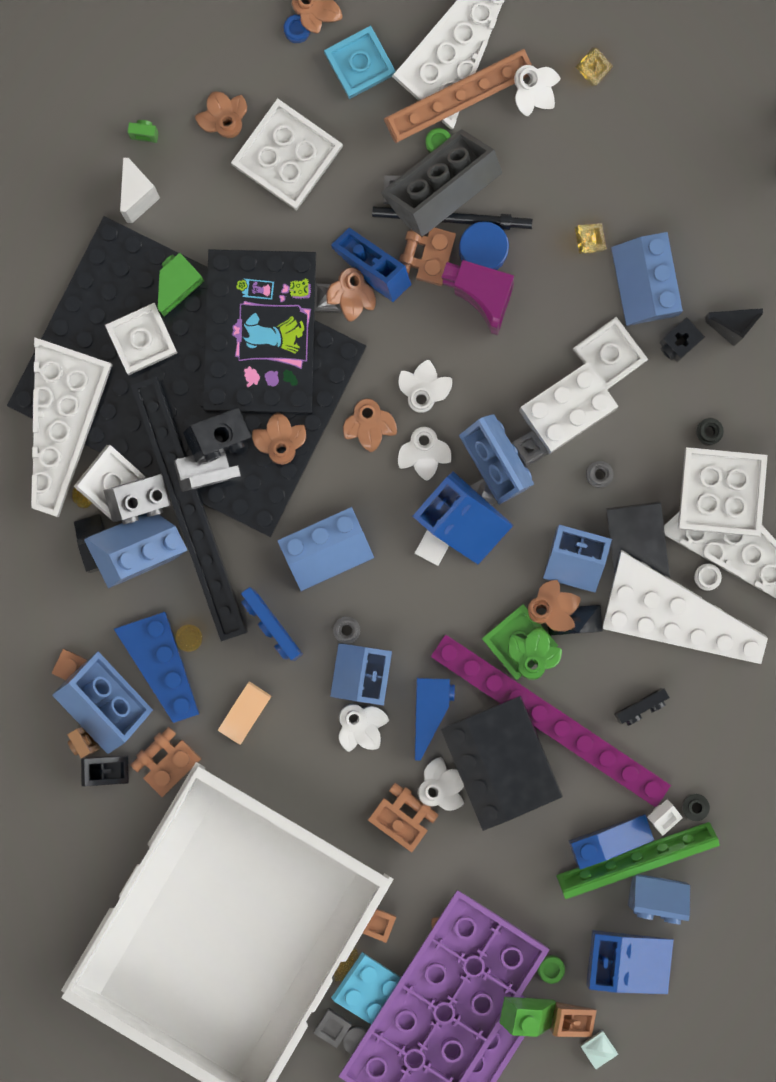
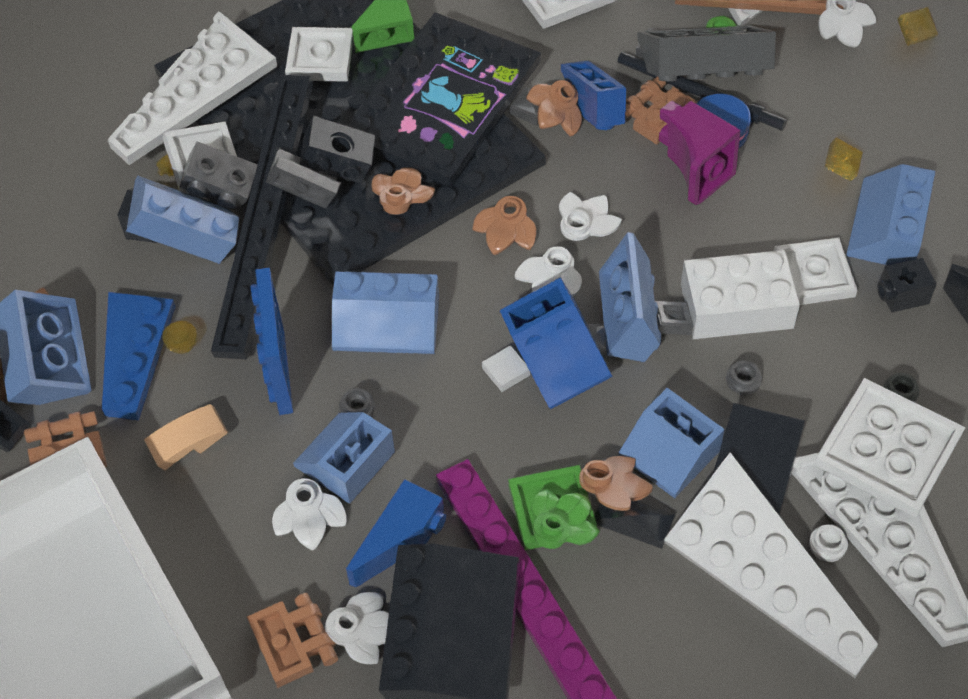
camera: 30 degrees right, 30 degrees down
(632, 713) = (661, 650): black plate -> none

